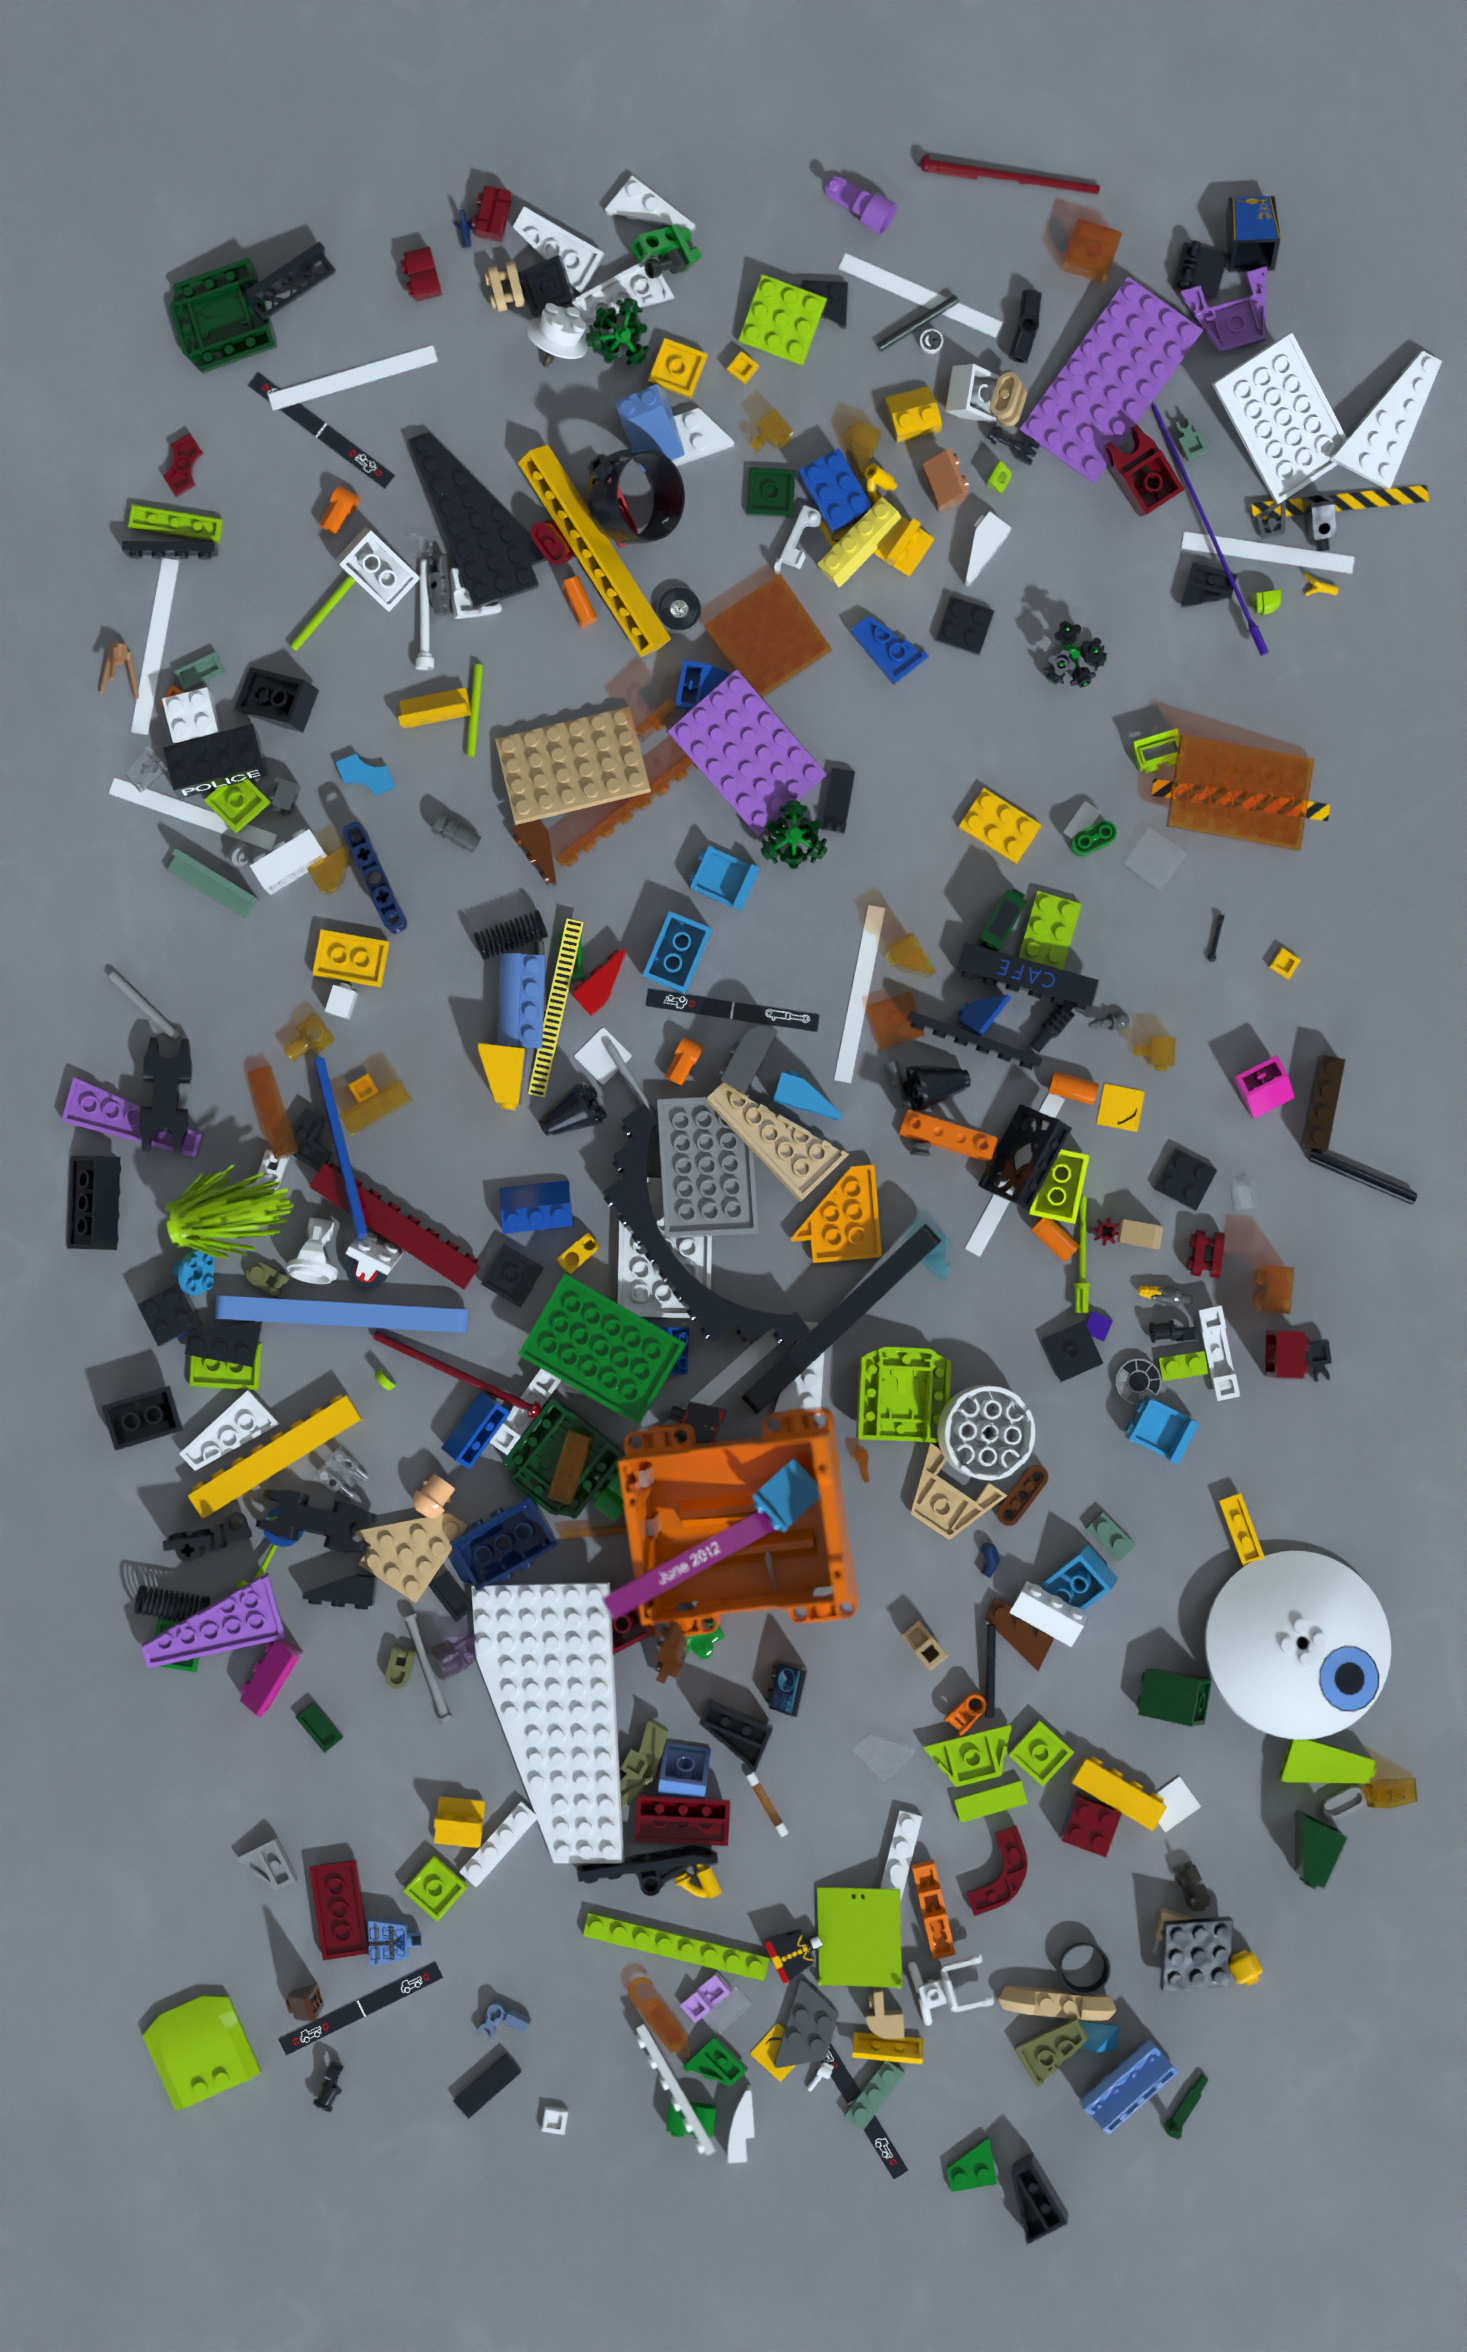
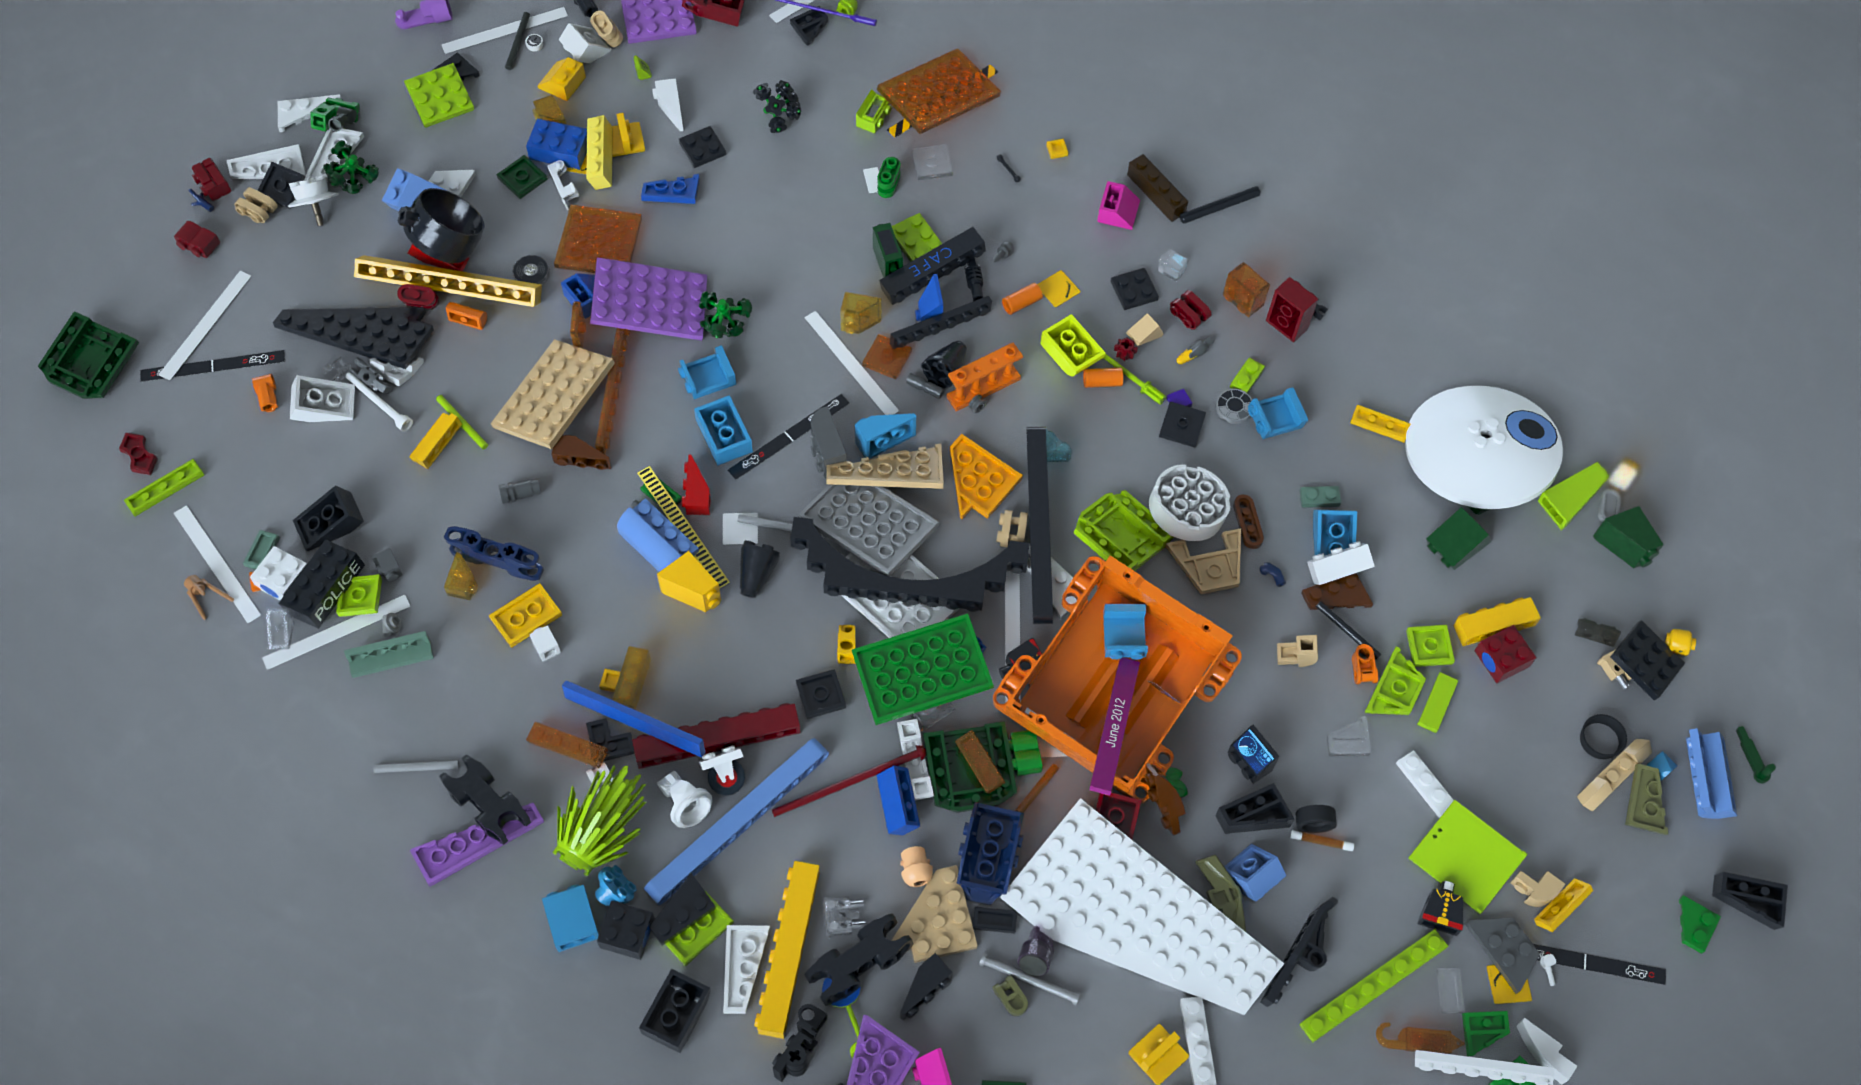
camera: 50 degrees left, 25 degrees down
(94, 1202) = (501, 913): black slope -> none
(140, 1259) = (570, 917): none -> dark azure panel
(161, 549) = (173, 500): black plate -> none
(259, 1273) = (659, 851): olive plate -> none
(285, 274) = (108, 304): black fence -> none
(288, 861) = (427, 593): white brick -> none
(304, 1042) = (546, 686): clear yellow piece -> none
(322, 613) = (310, 454): lime bar -> none
(375, 778) = (436, 509): dark azure tile -> none
(385, 1379) = (808, 830): lime tile -> none
(536, 1207) = (793, 643): blue slope -> none
(541, 931) = (621, 494): black piece -> none
(677, 368) = (403, 158): yellow plate -> none
(682, 1820) = (1286, 901): dark red slope -> none
(685, 1057) = (789, 479): orange piece -> none
(705, 1874) = (1349, 924): yellow plant -> none
(706, 1997) = (1428, 996): lavender slope -> none
(742, 368) = (440, 134): yellow plate -> none
(772, 430) = (490, 146): clear yellow brick -> none
(776, 1787) = (1316, 818): none -> black tyre
(806, 1295) = (1006, 520): none -> tan brick
(838, 800) = (728, 282): black hinge -> none
(874, 2094) = (1590, 944): sand green plate -> none
(879, 477) = (576, 117): yellow plant -> none
(933, 1909) = (1486, 797): orange slope -> none
(941, 1991) = (1550, 832): white piece -> none
(945, 480) = (614, 87): nougat slope -> none
(998, 1205) = (1043, 372): white sticker -> none
(999, 826) = (831, 218): yellow plate -> none
(1010, 1879) = (1503, 733): dark red plate -> none
(1018, 1135) = (1059, 356): black fence -> none
(1023, 448) = (642, 45): black hinge -> none
(1160, 1052) = (1045, 241): clear yellow brick -> none
(1168, 1331) = (1219, 364): black connector -> none
(1179, 1804) = (1537, 593): white sticker -> none
(1218, 1353) = (1246, 347): white slope -> none

